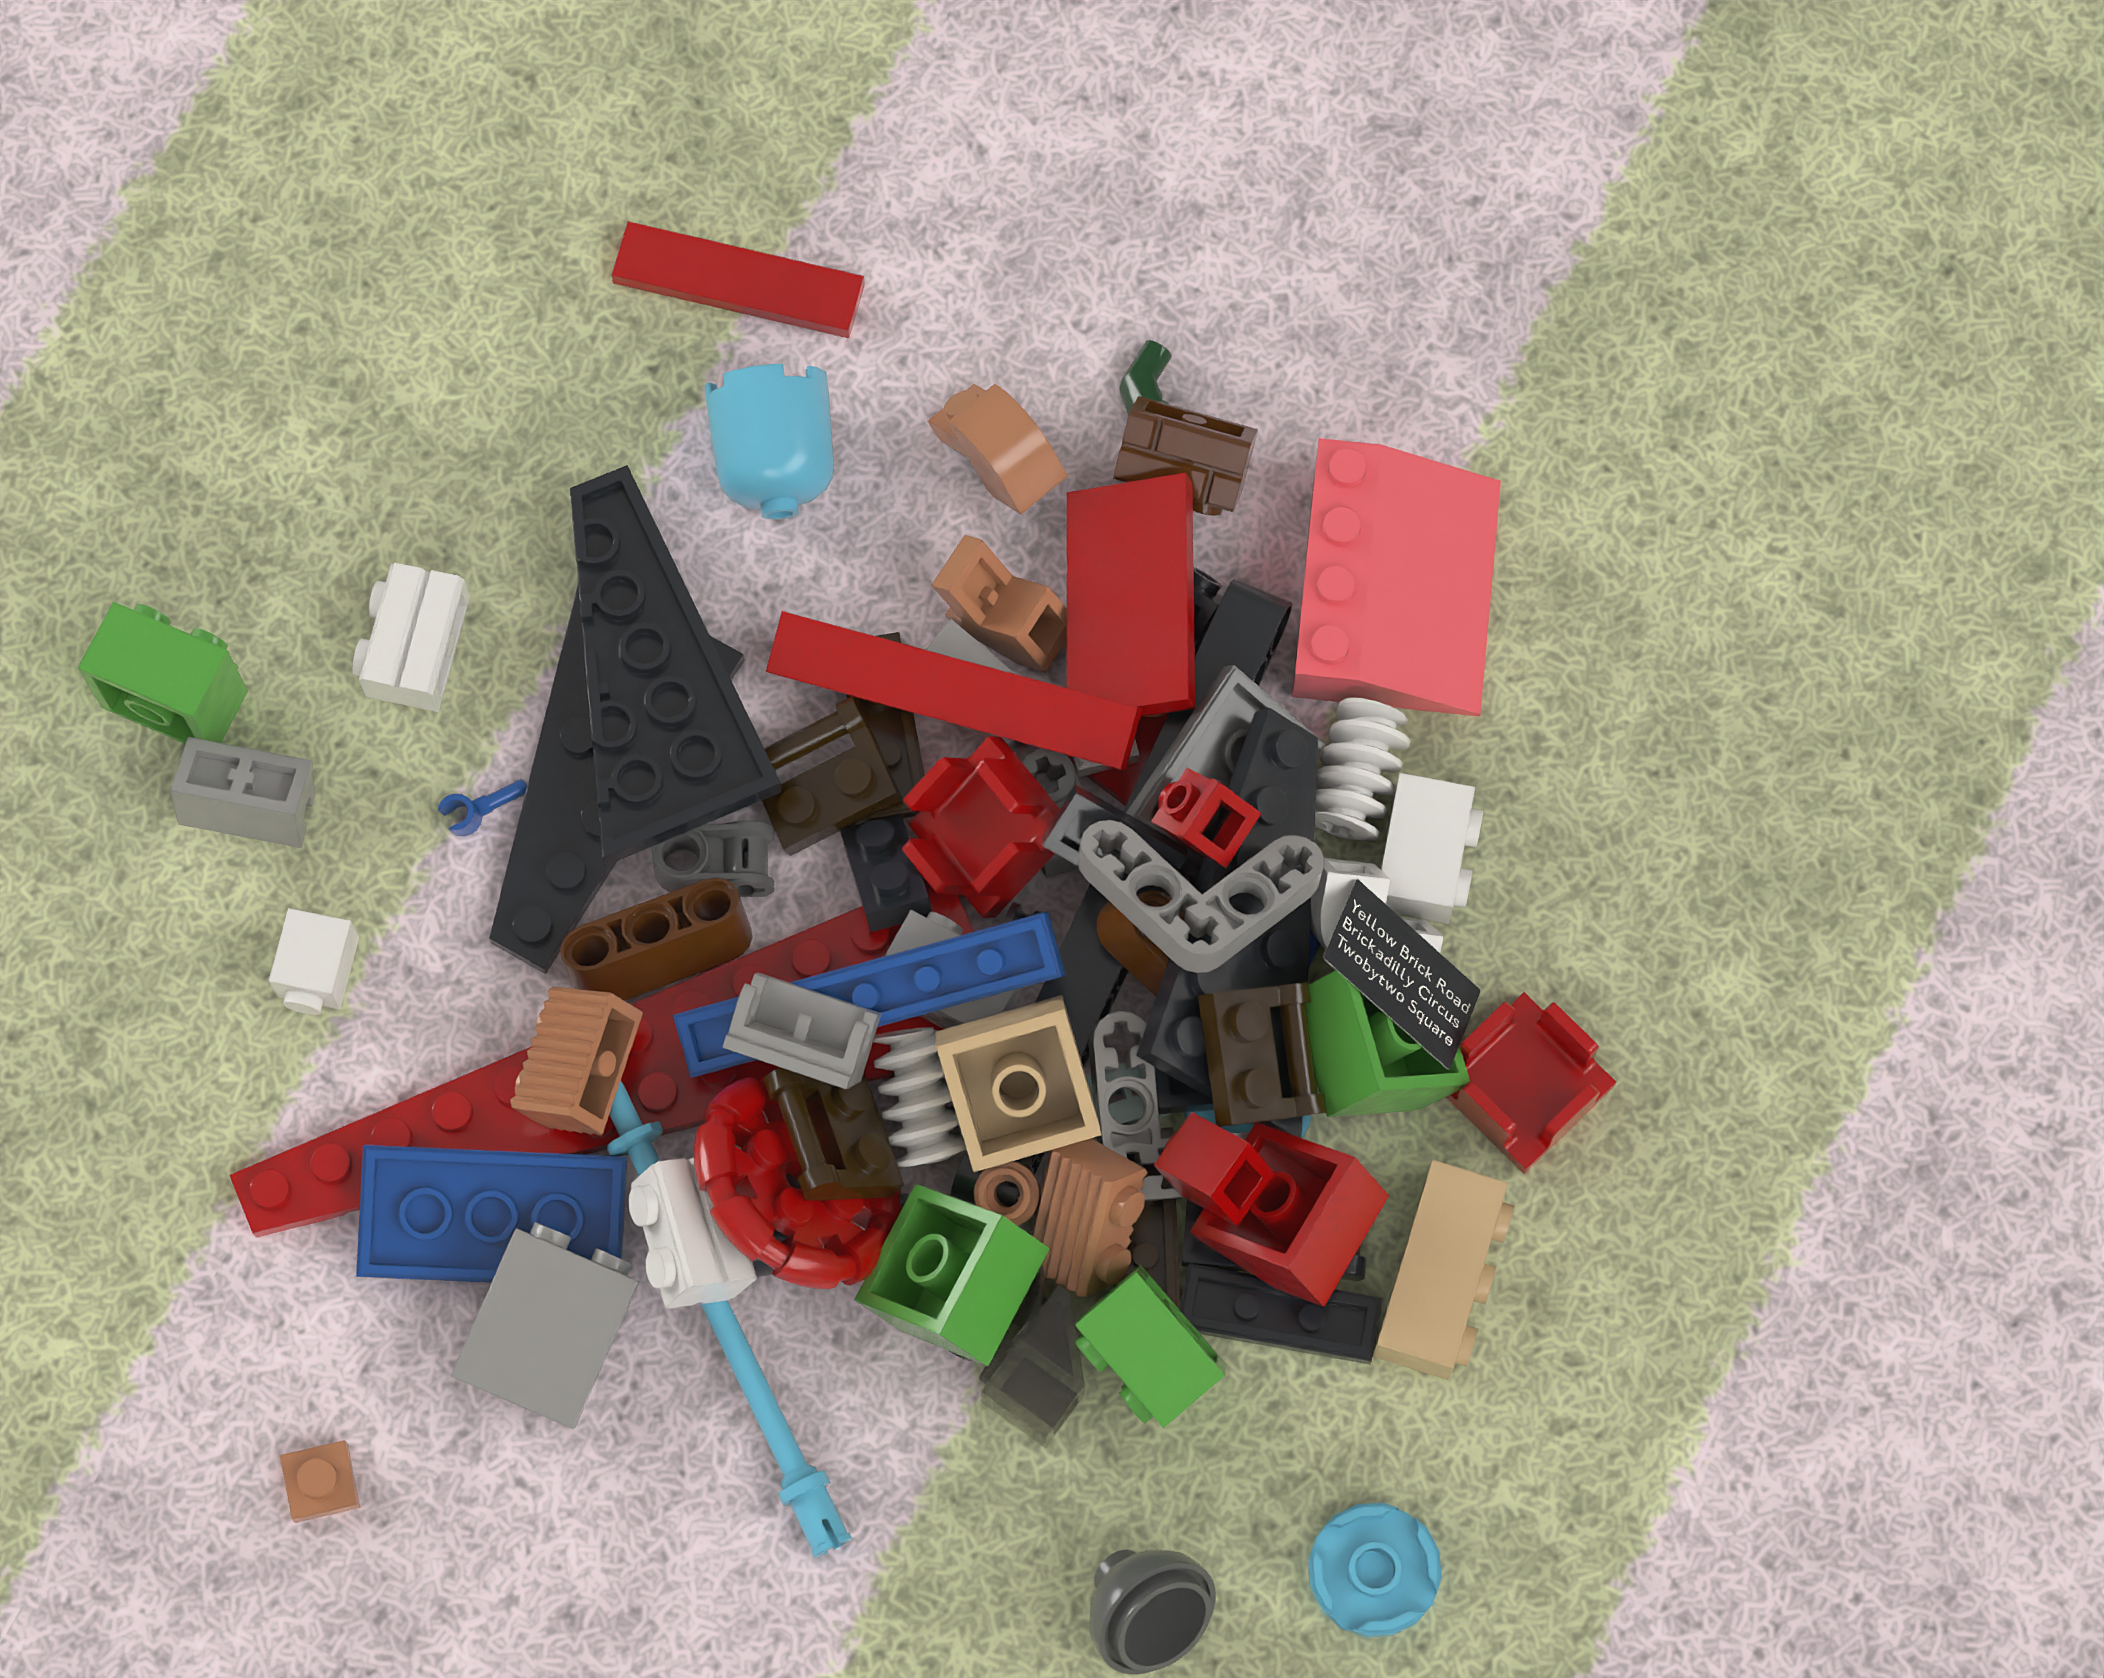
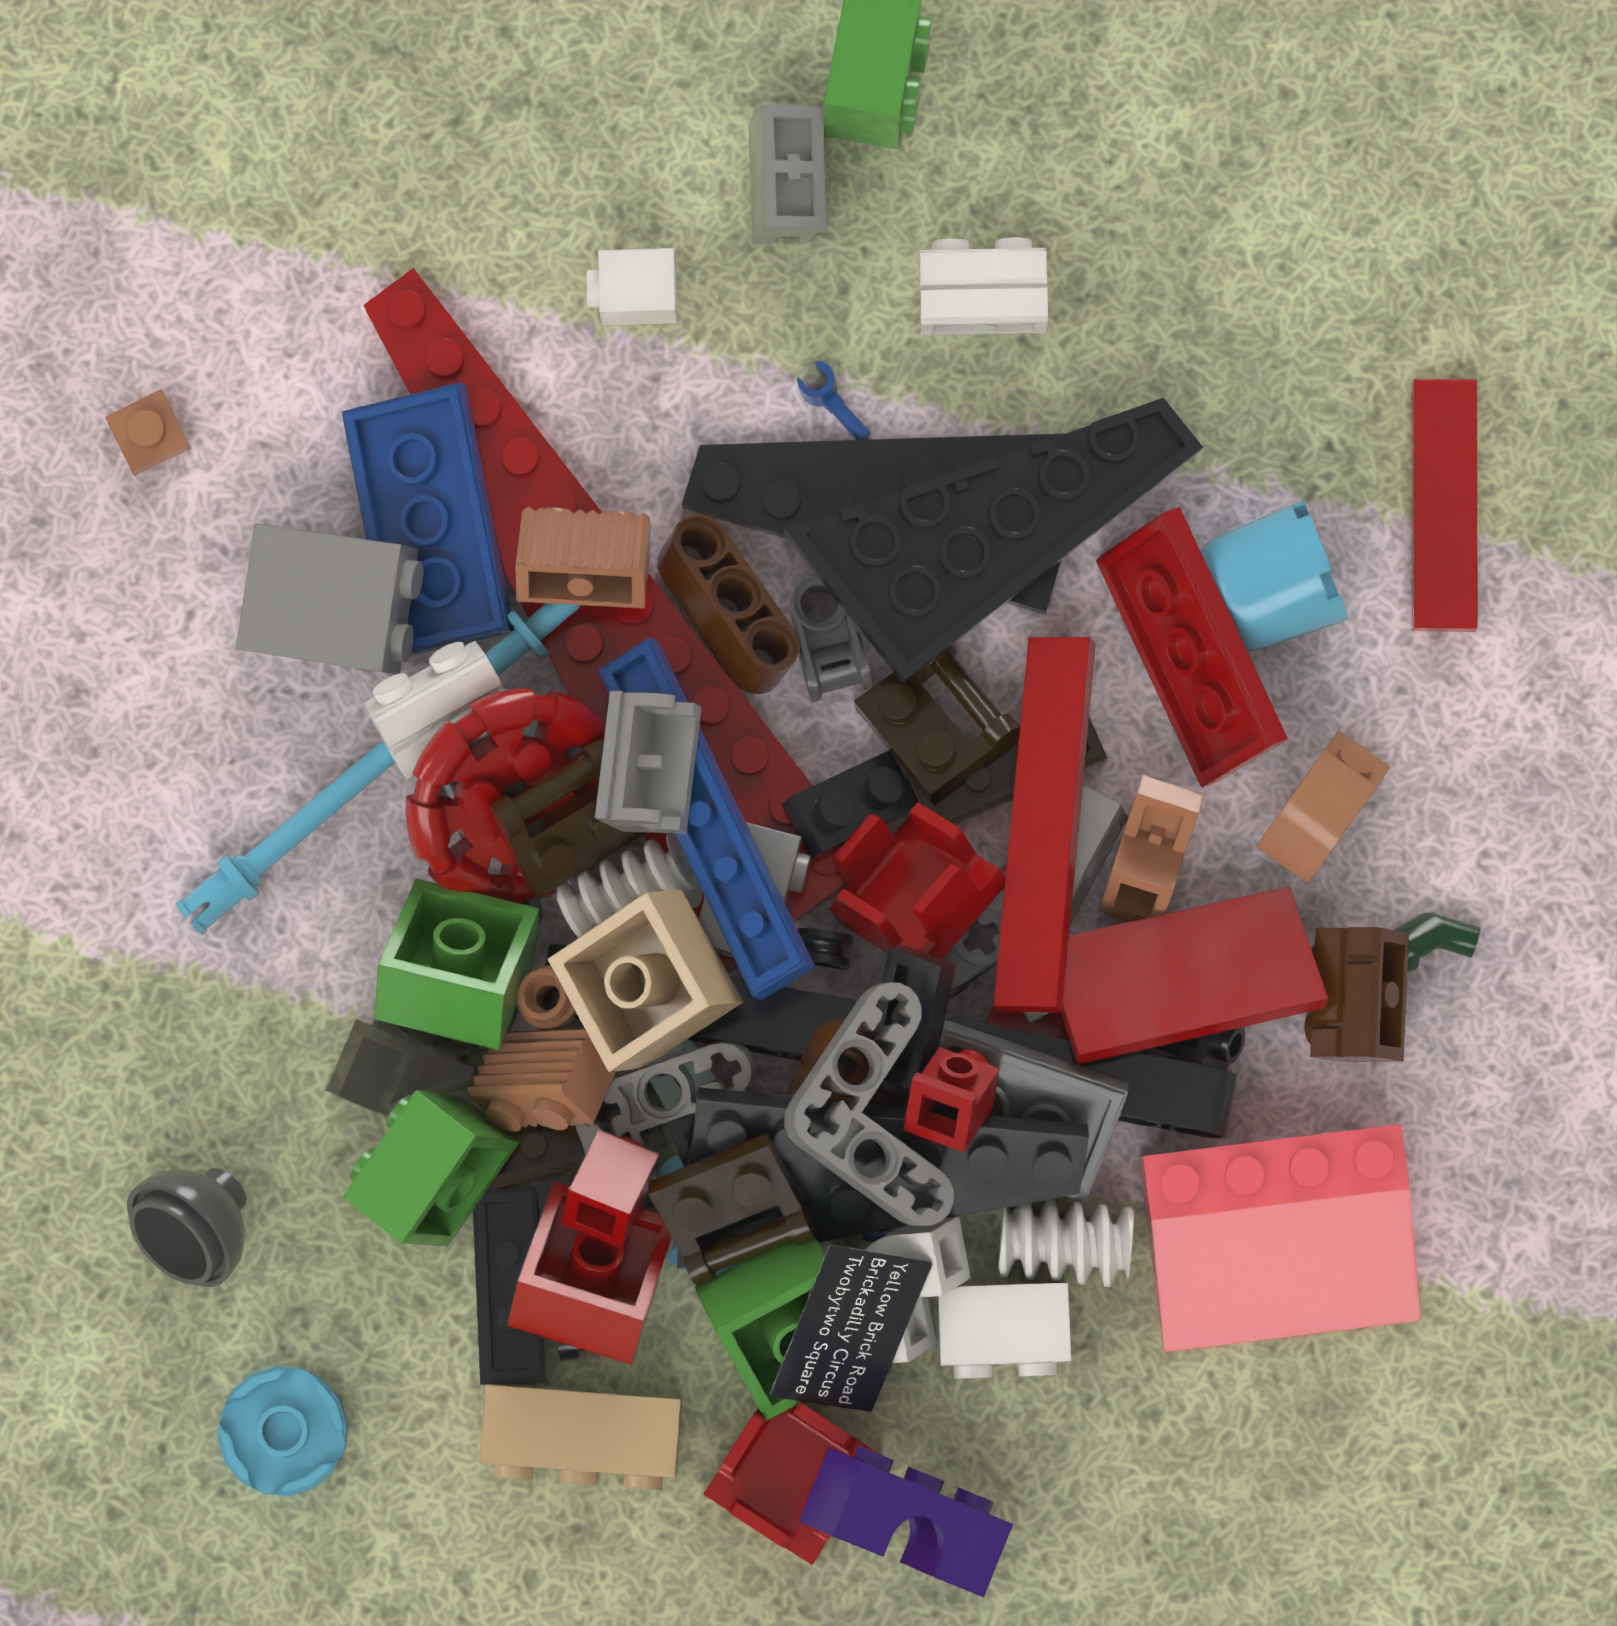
camera: 80 degrees right, 10 degrees up
(817, 522) = (1191, 648): none -> red tile
(1594, 968) = (866, 1504): none -> dark purple arch

